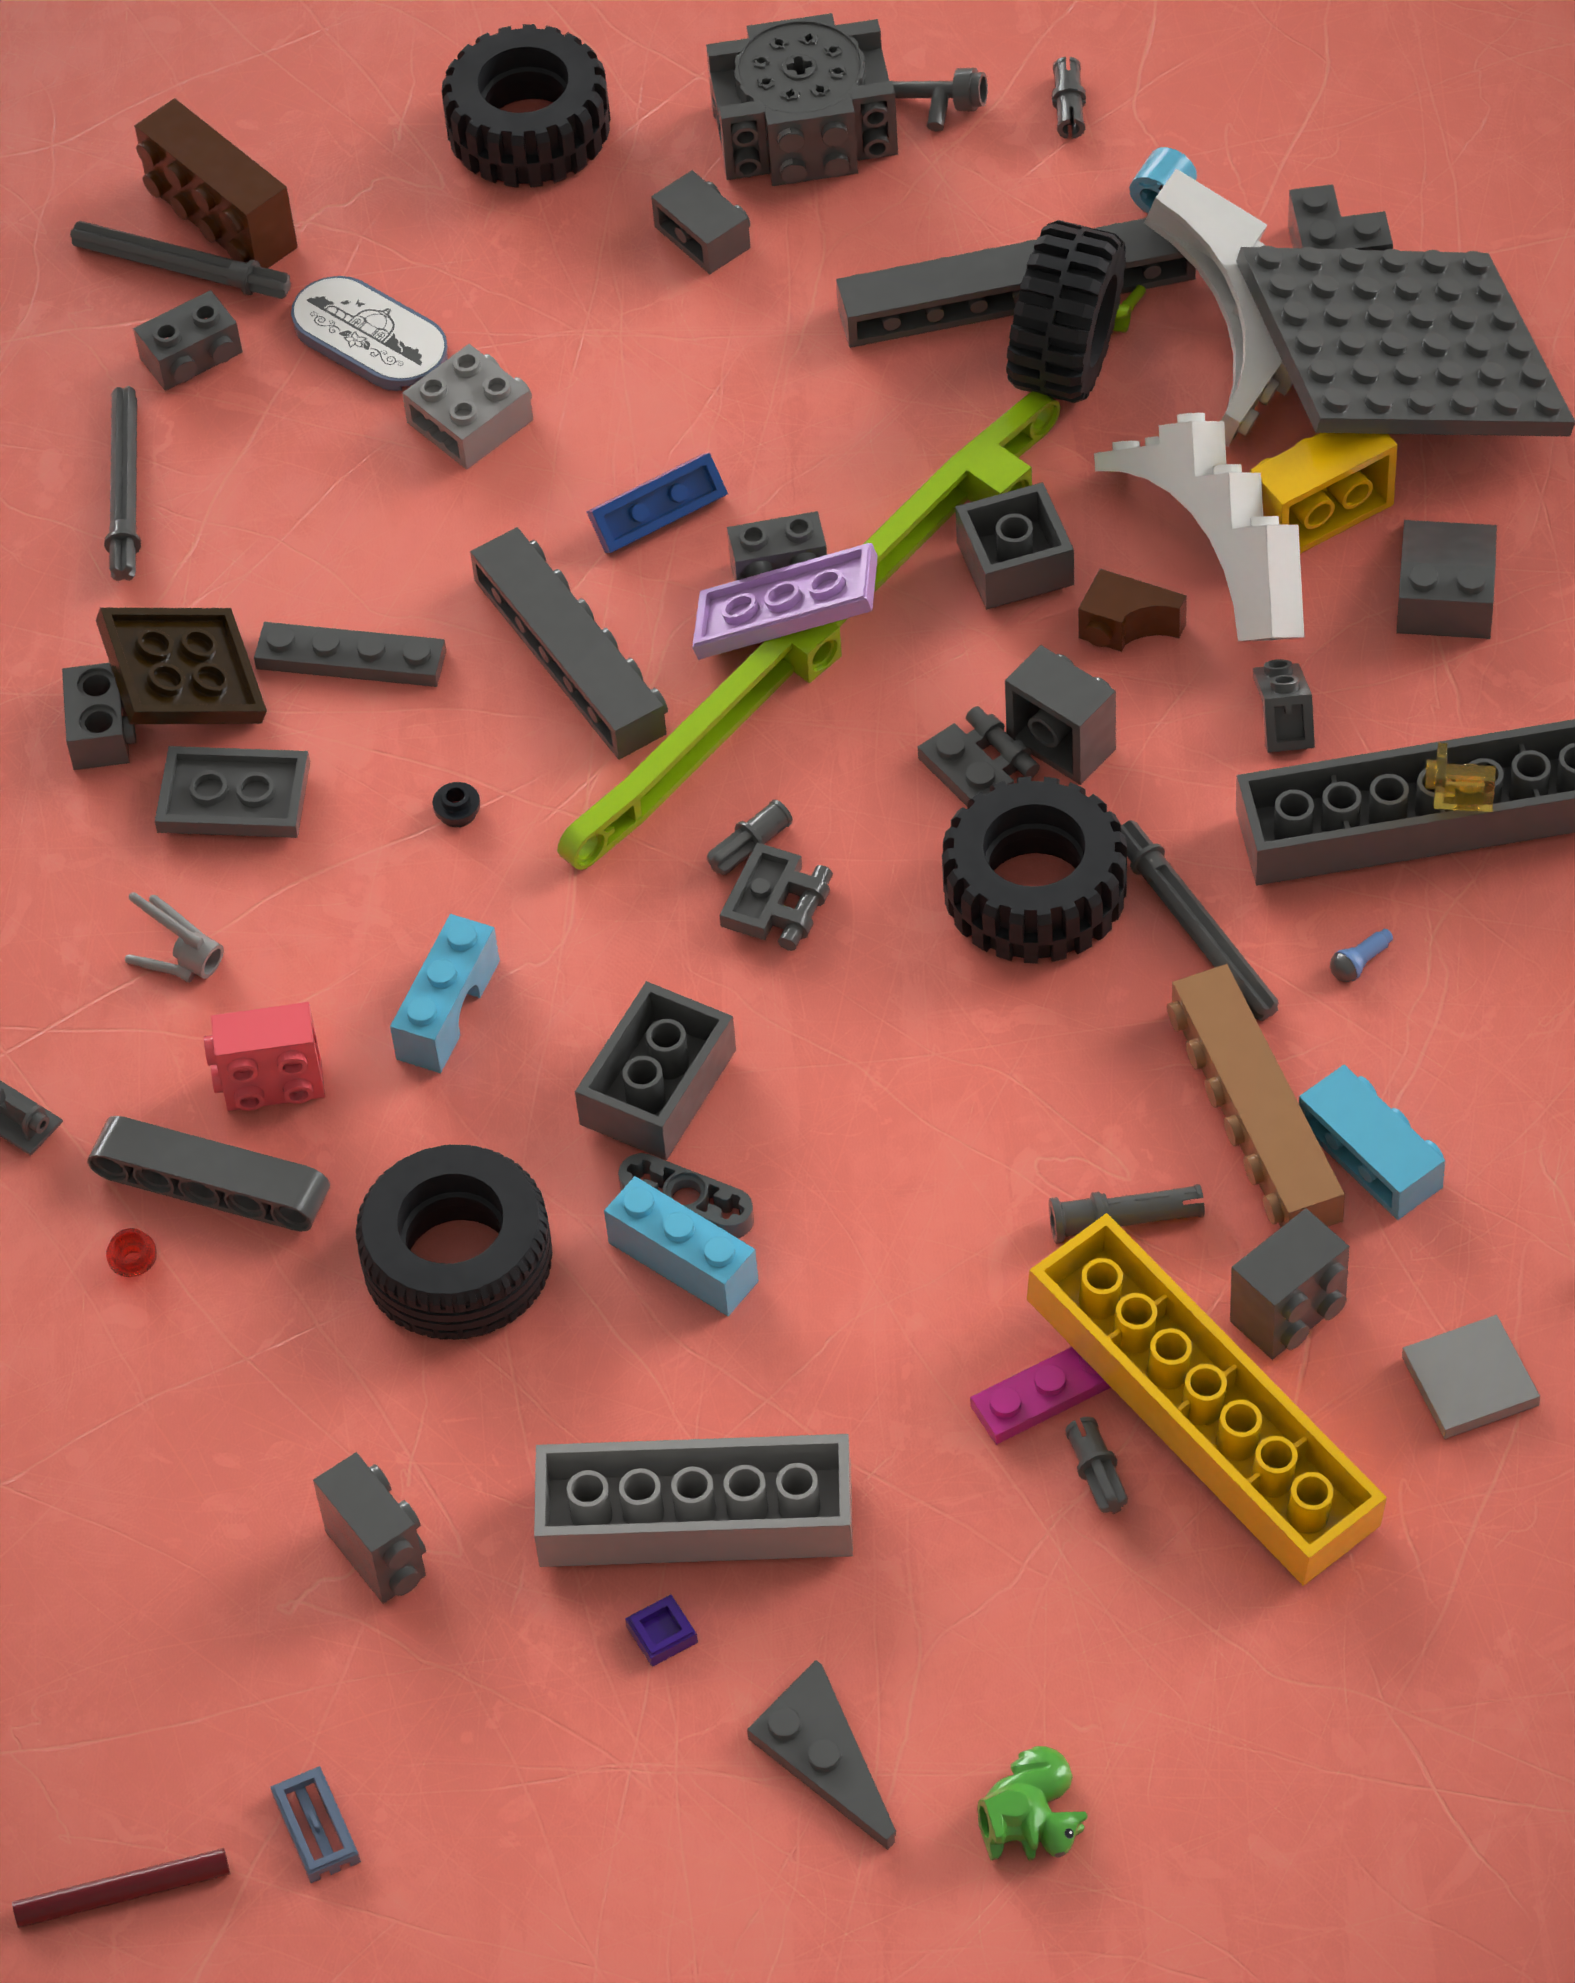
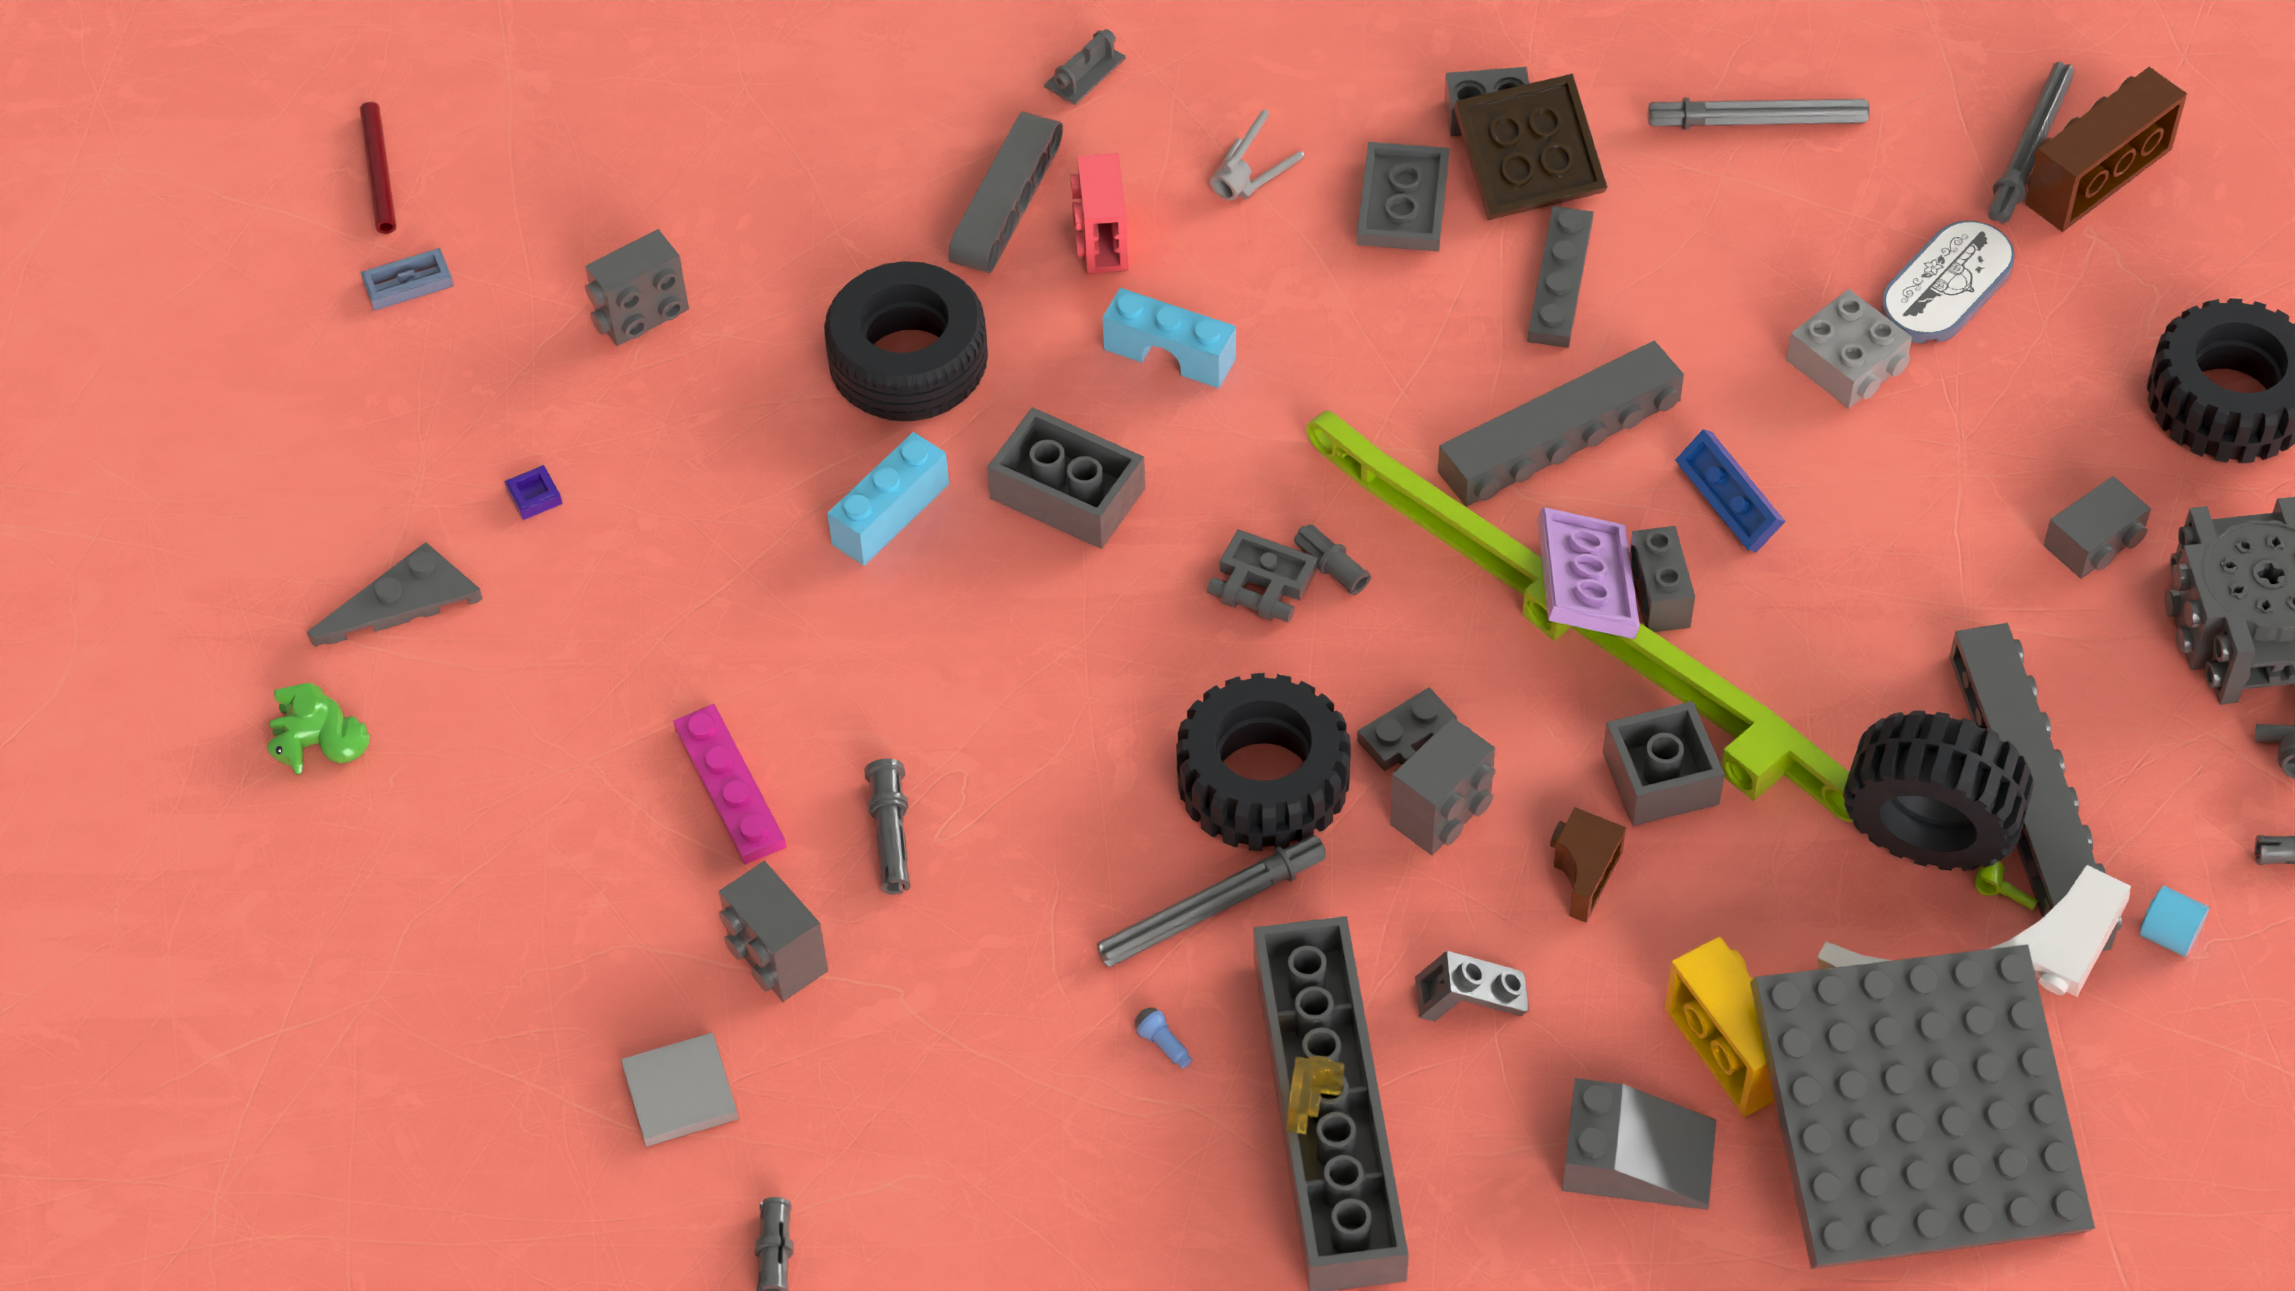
camera: 90 degrees right, 0 degrees up
(127, 1242) = (939, 149): clear red plate -> none
(192, 340) = (1925, 147): dark grey brick -> none
(458, 813) = (1381, 358): black plate -> none
(674, 1177) = (949, 527): dark grey beam -> none
(693, 1500) = (631, 502): light grey brick -> none
(1097, 1466) = (629, 791): dark grey axle -> none
(1206, 1399) = (661, 856): yellow brick -> none
(1252, 548) = (1673, 926): white arch -> none
(1254, 1098) = (993, 932): medium nougat brick -> none
(1317, 223) = (2098, 1065): dark grey brick -> none
(1373, 1141) = (937, 1022): medium azure brick -> none

